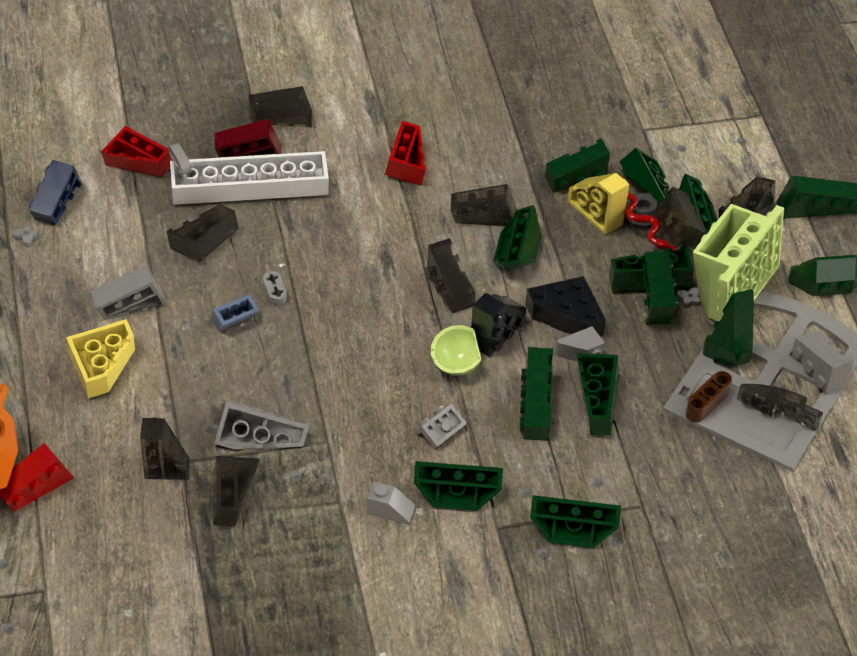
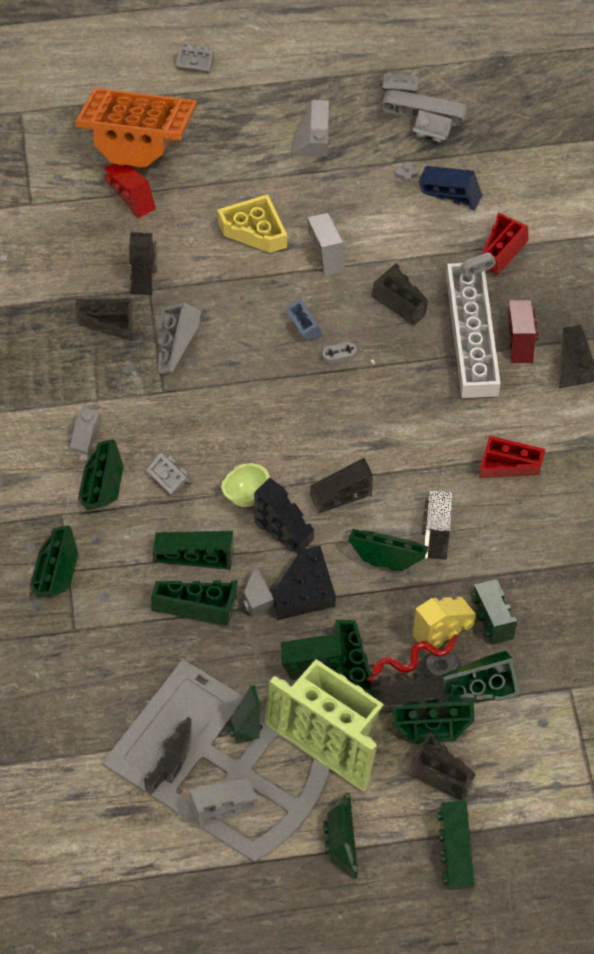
camera: 95 degrees right, 10 degrees up
(708, 396) = (182, 685): reddish brown beam -> none

